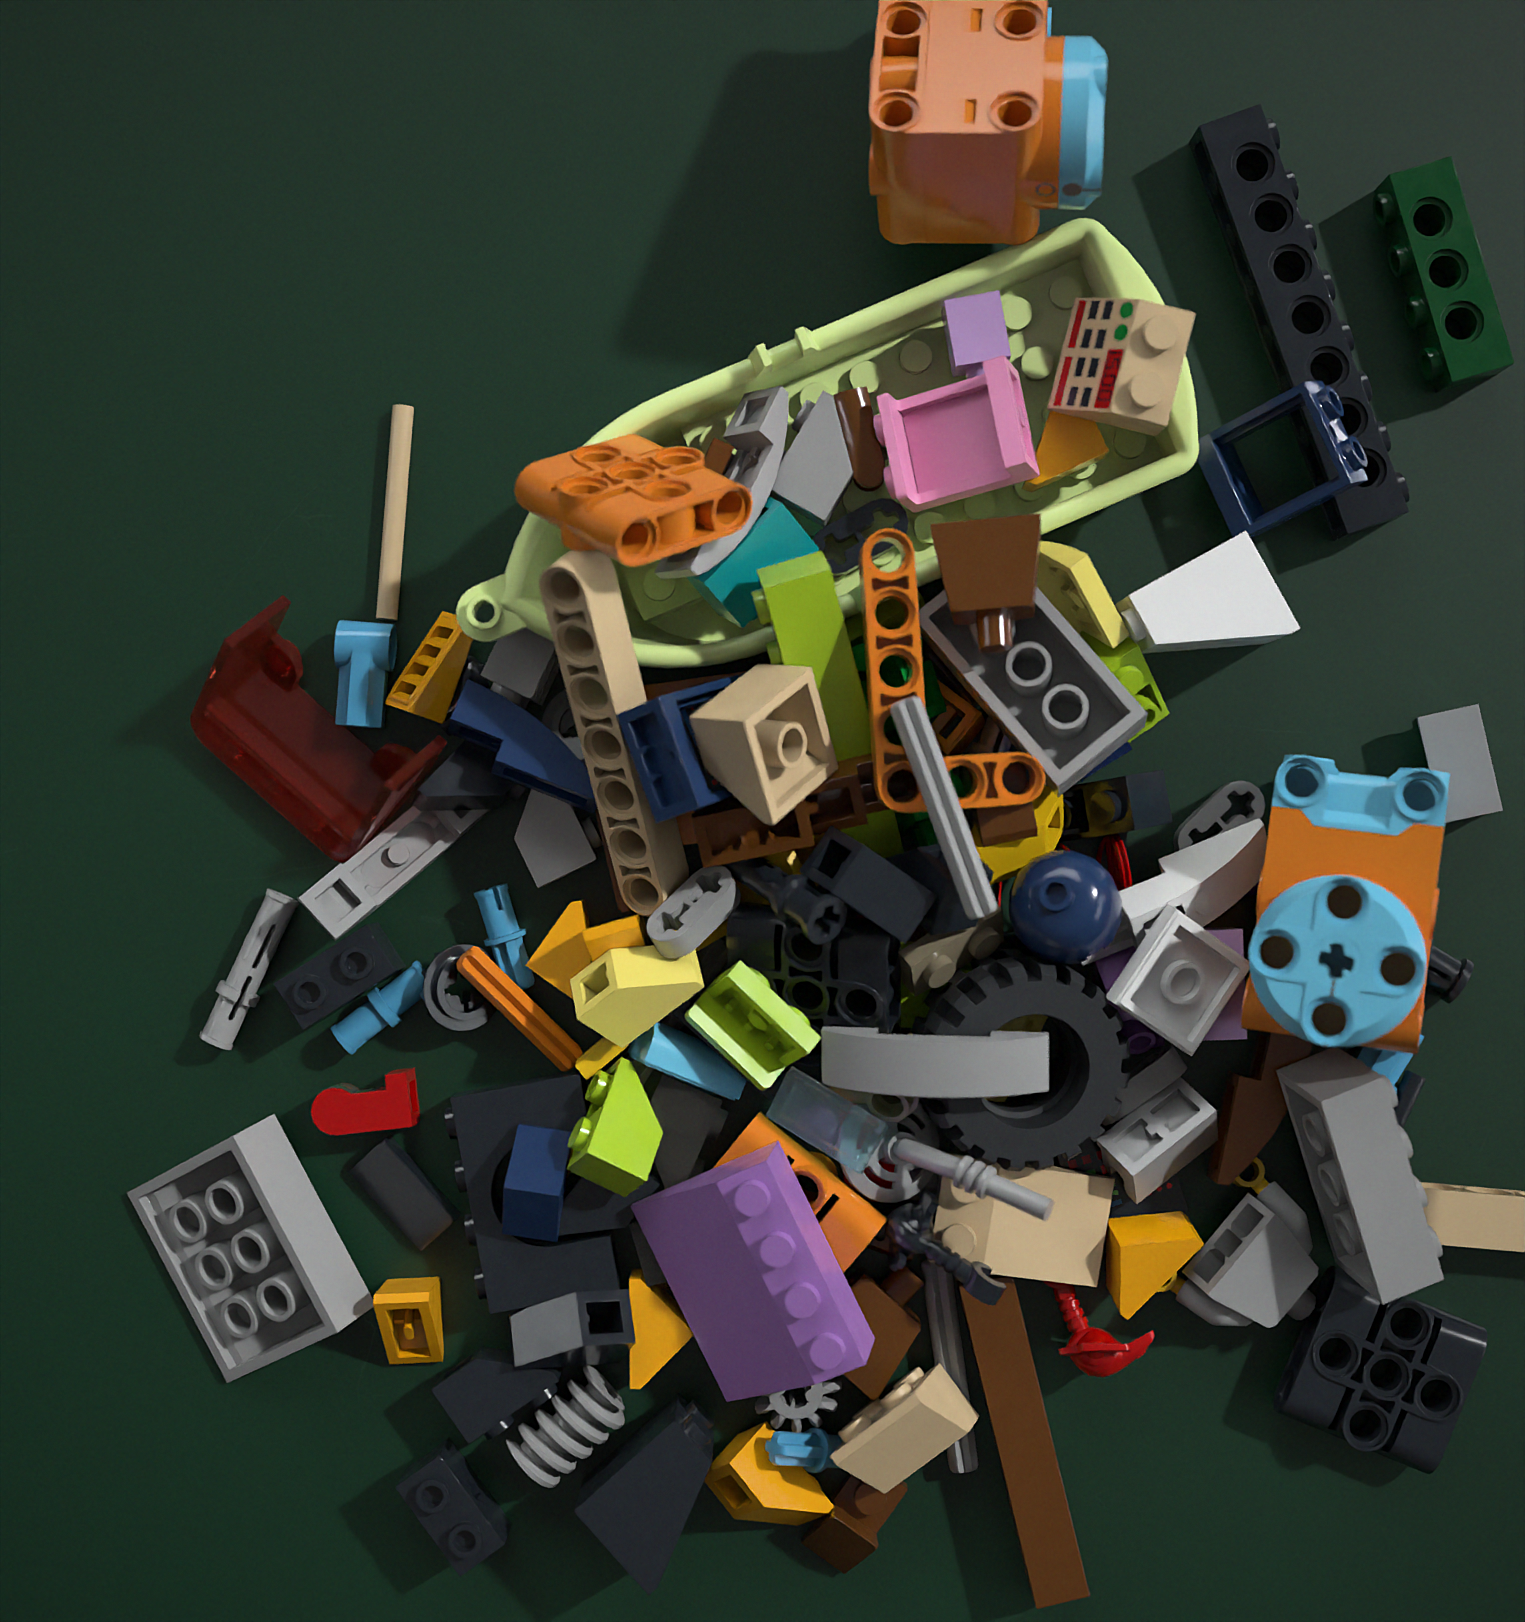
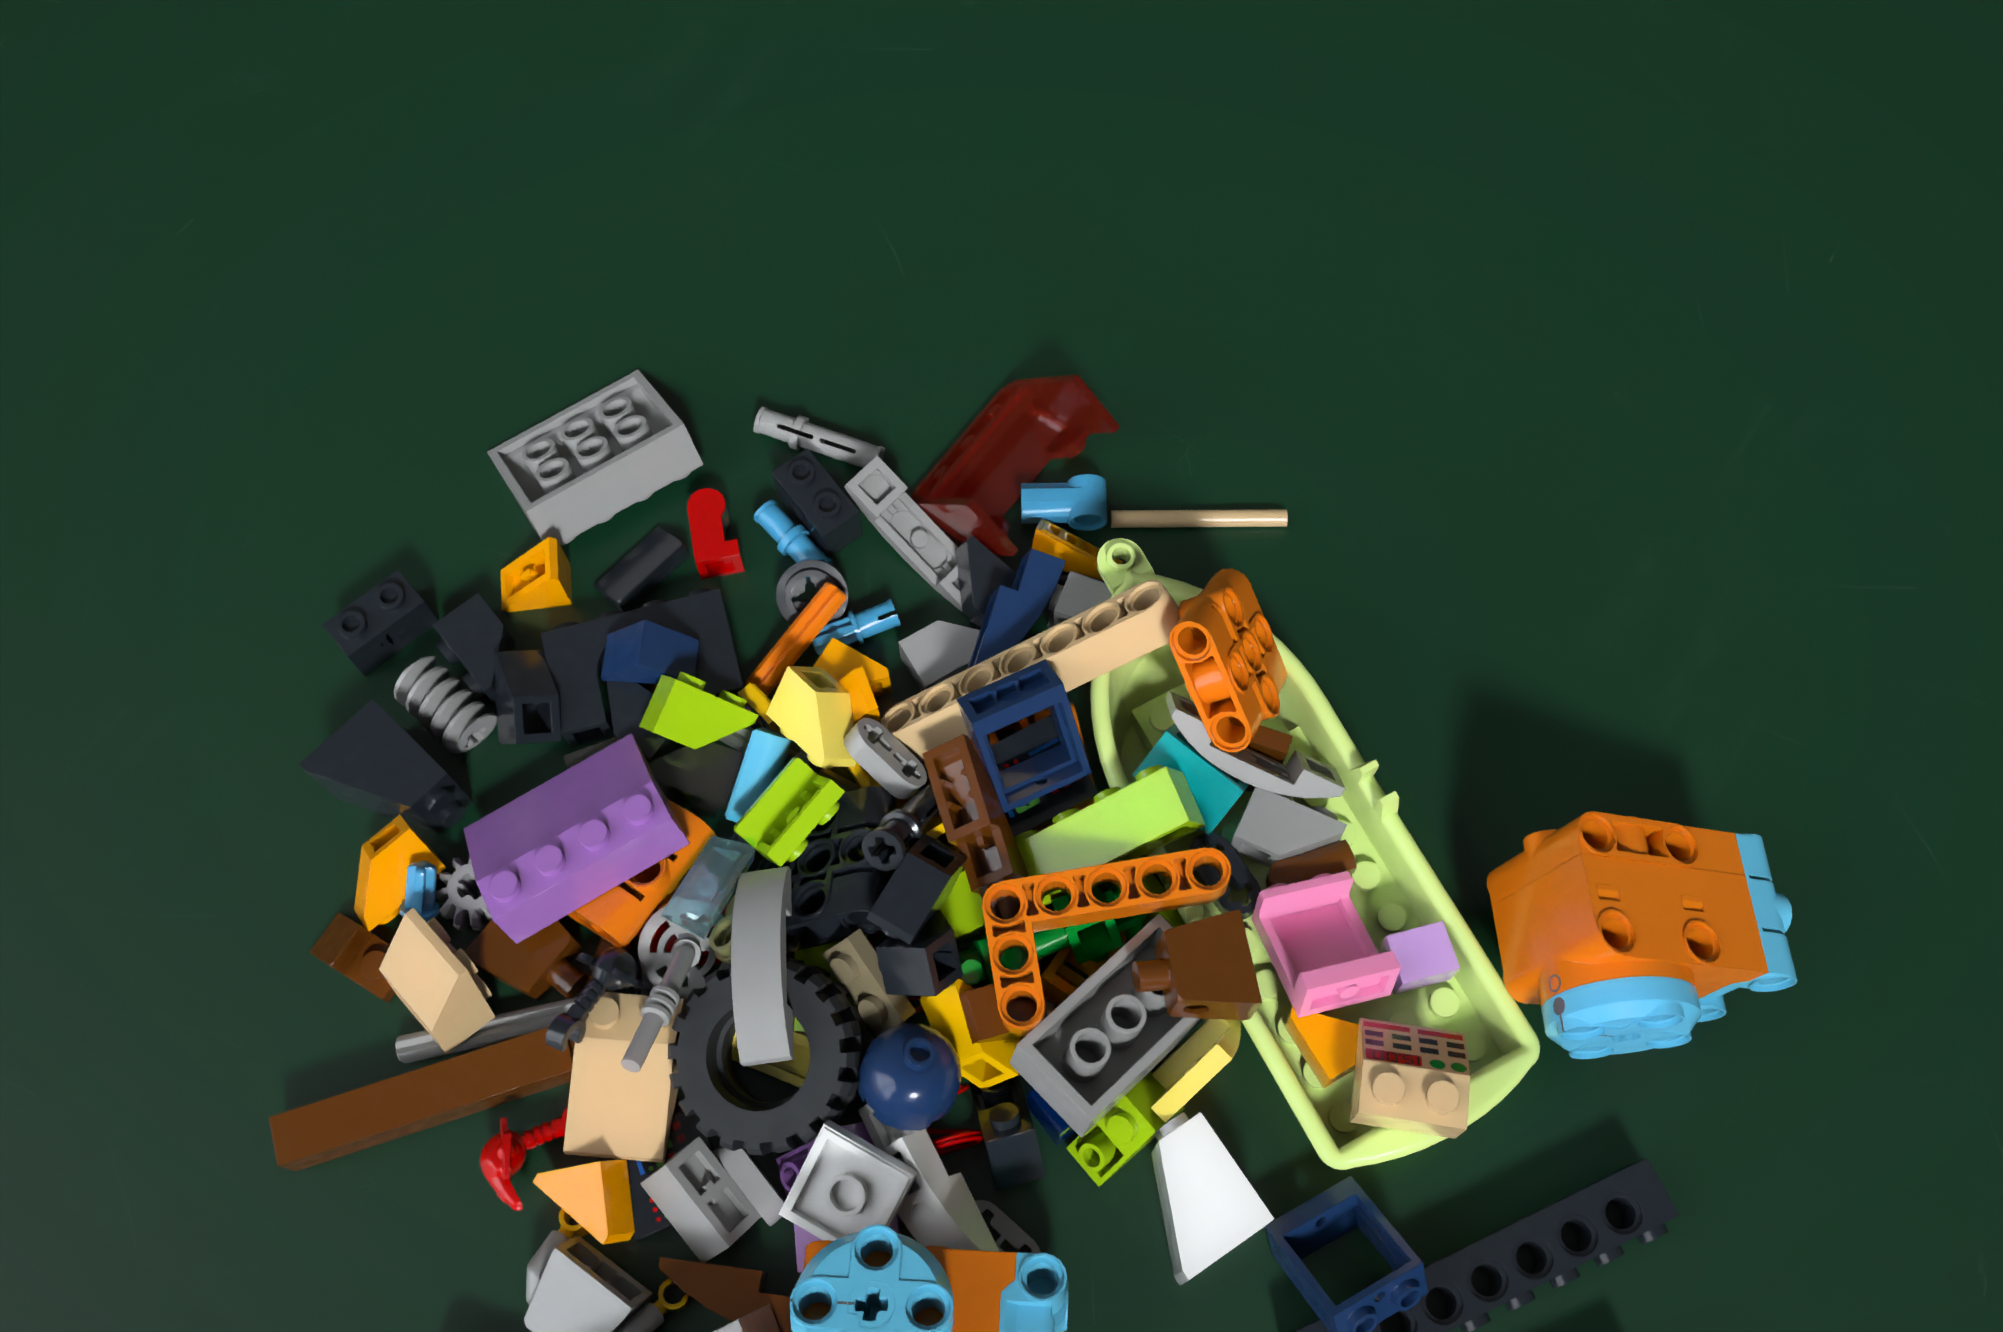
camera: 85 degrees right, 20 degrees down
(658, 1329) = (525, 765): light orange slope -> none
(767, 739) = (1035, 787): tan slope -> none
(943, 807) = (988, 935): light grey axle -> none

